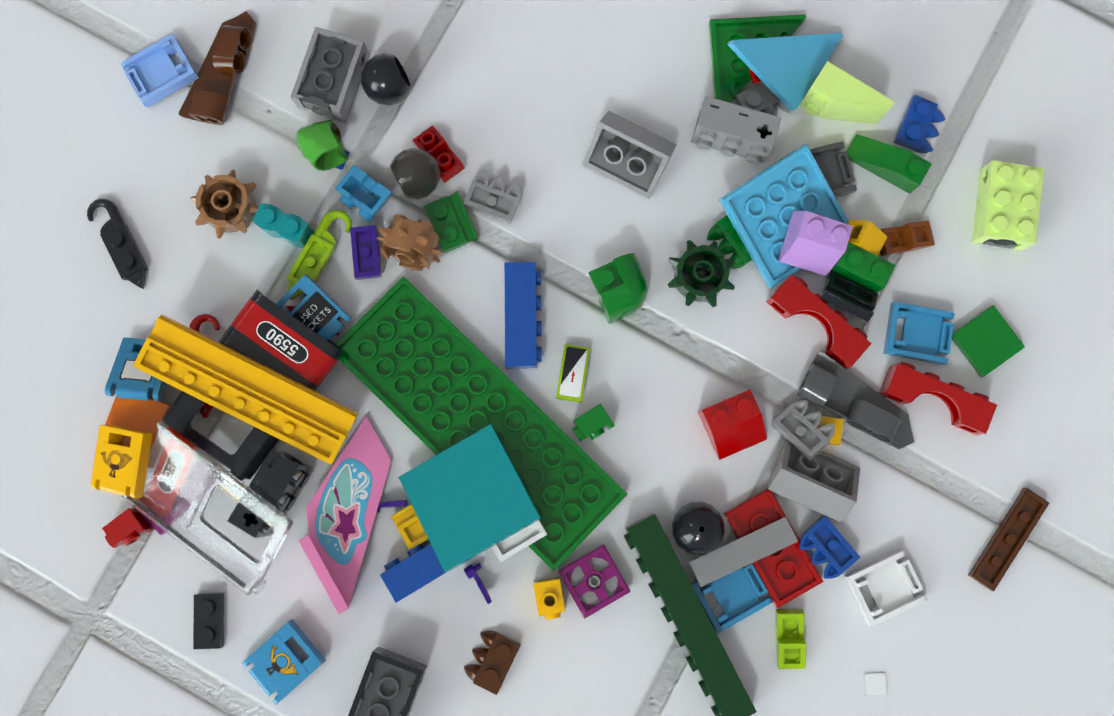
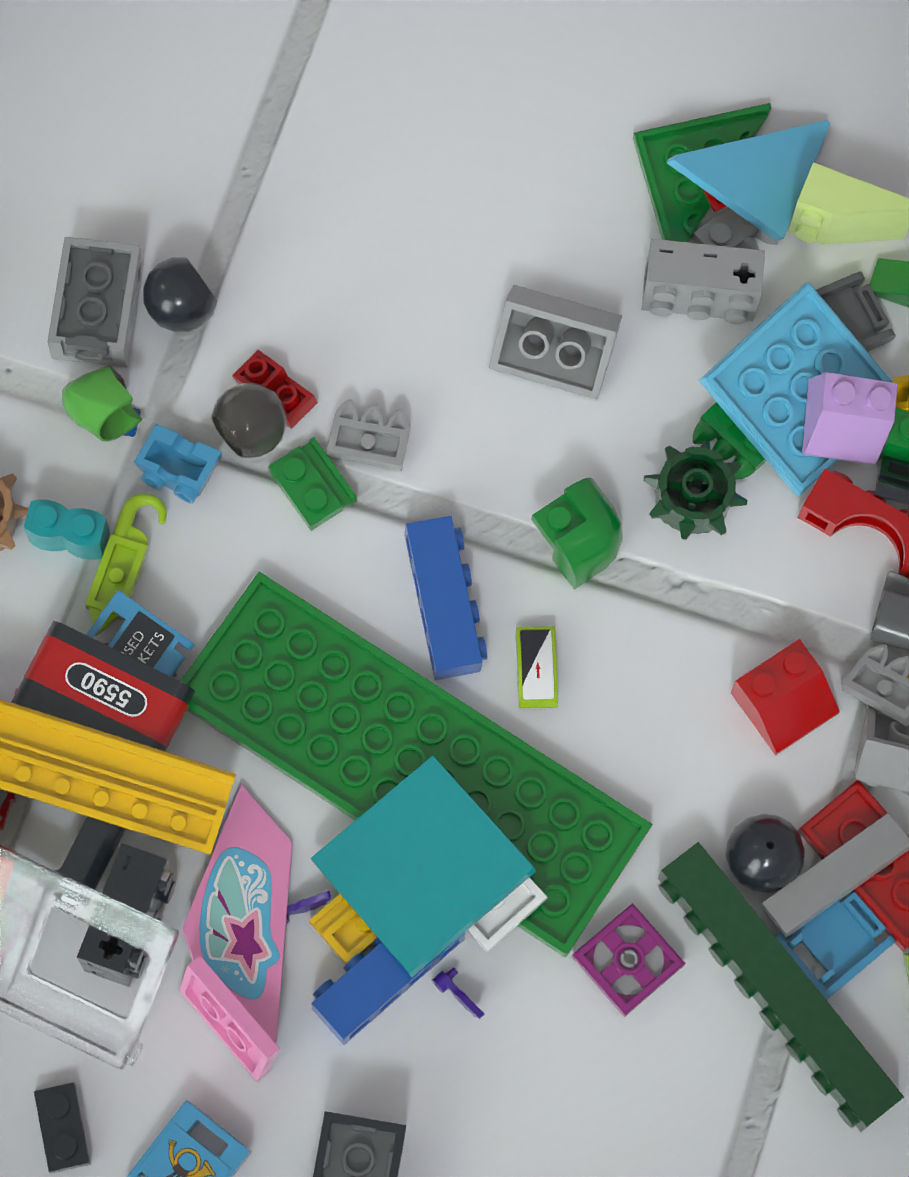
camera: 15 degrees left, 10 degrees down
(365, 252) = (195, 547): dark purple plate -> none
(410, 242) = (262, 519): medium nougat brick -> none
(495, 661) = (503, 1107): reddish brown plate -> none
(549, 598) = (567, 994): yellow brick -> none
(592, 423) = (579, 733): green brick -> none

